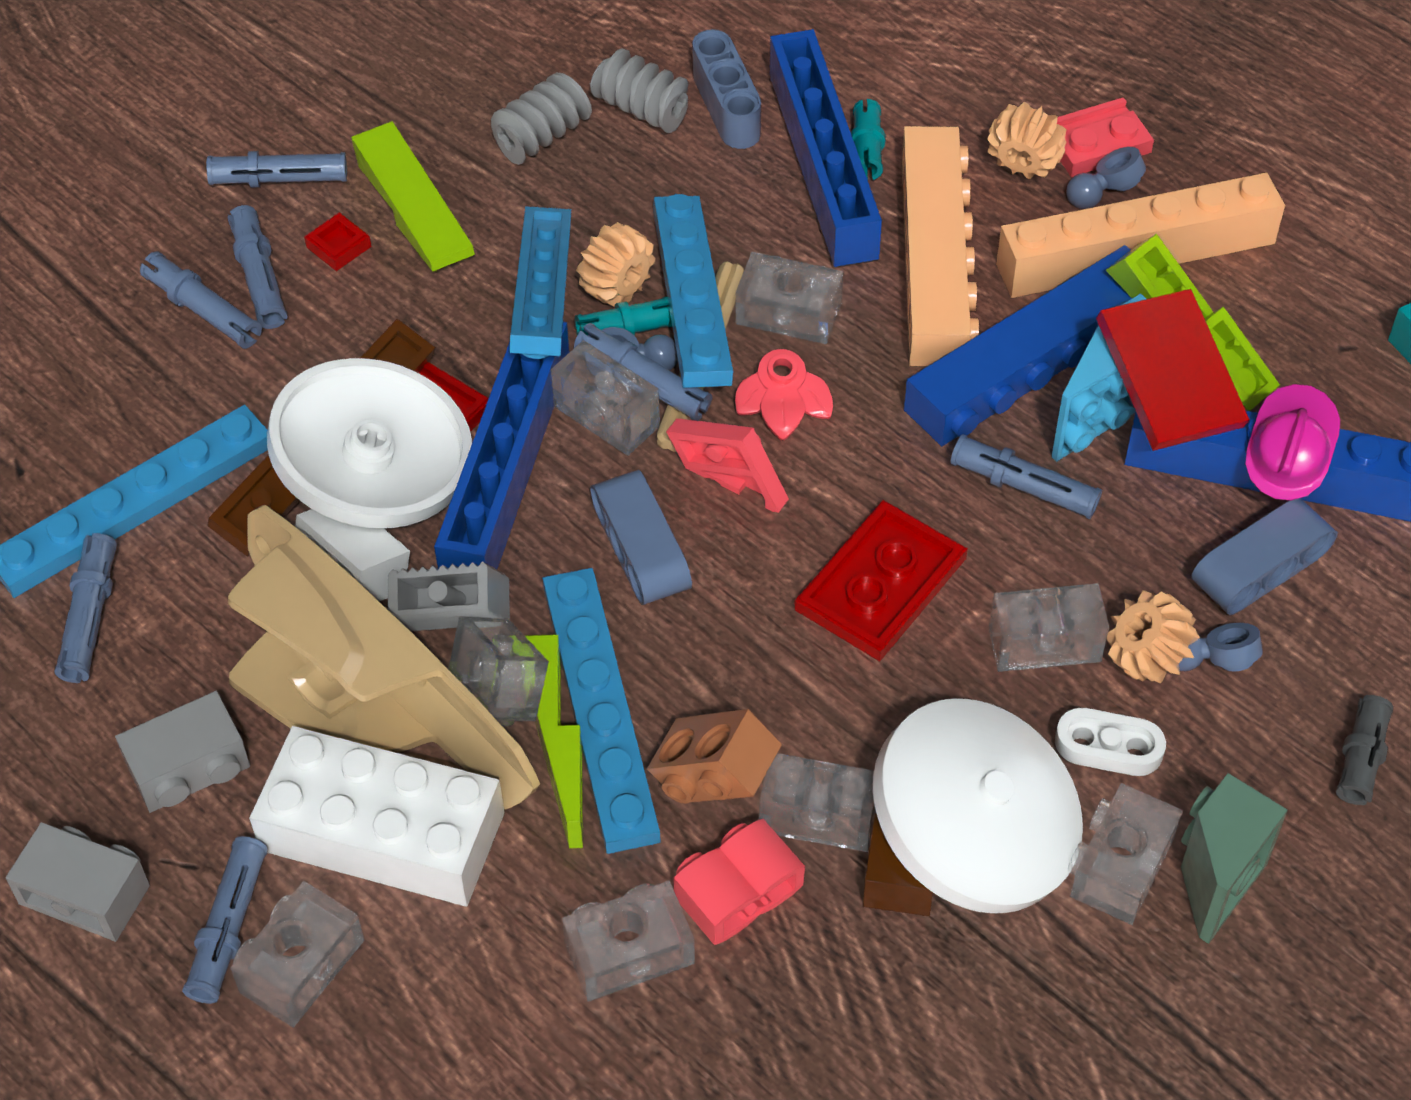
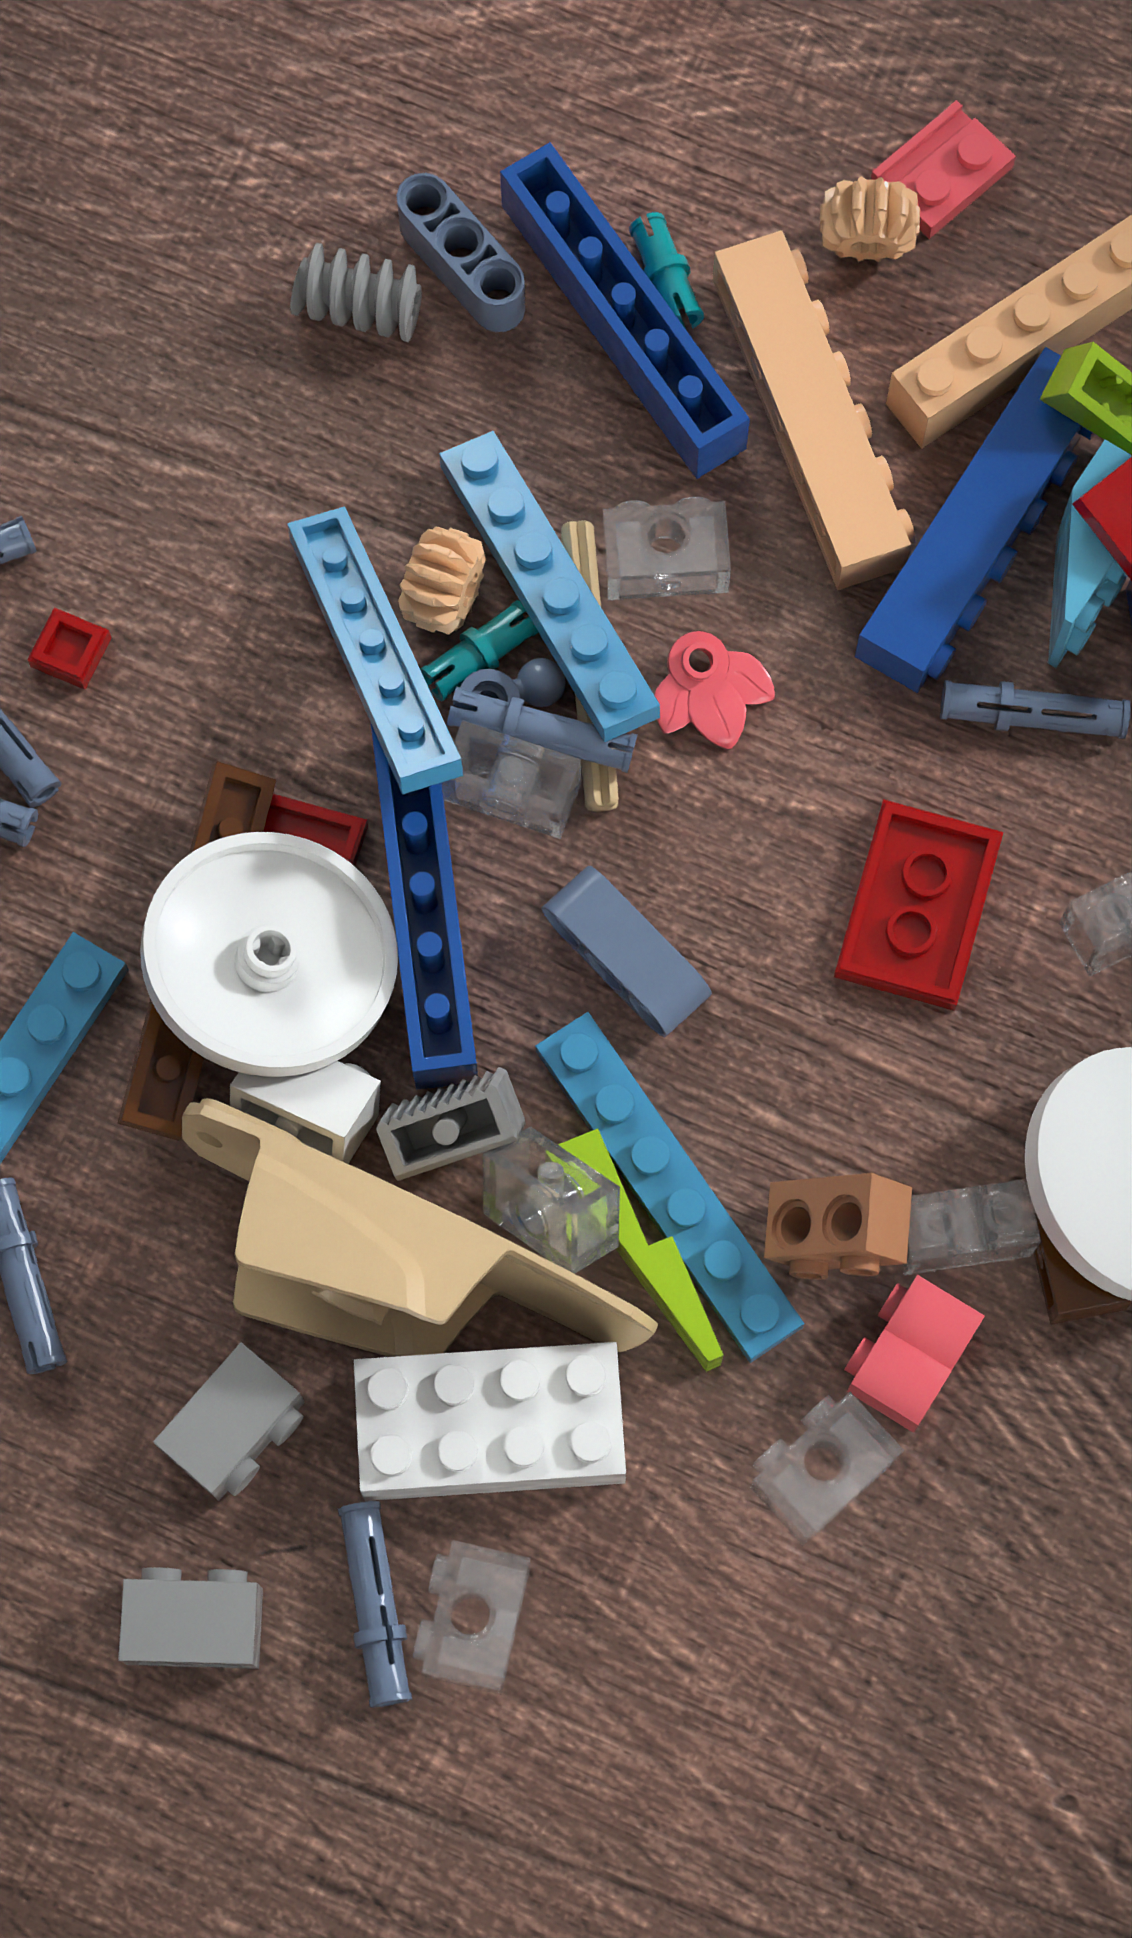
camera: 20 degrees left, 20 degrees up
(412, 196) = (137, 555): lime slope -> none
(539, 116) = (242, 377): light grey piece -> none
(728, 456) = (685, 810): coral wing -> none
(1116, 170) = (990, 220): sand blue plate -> none

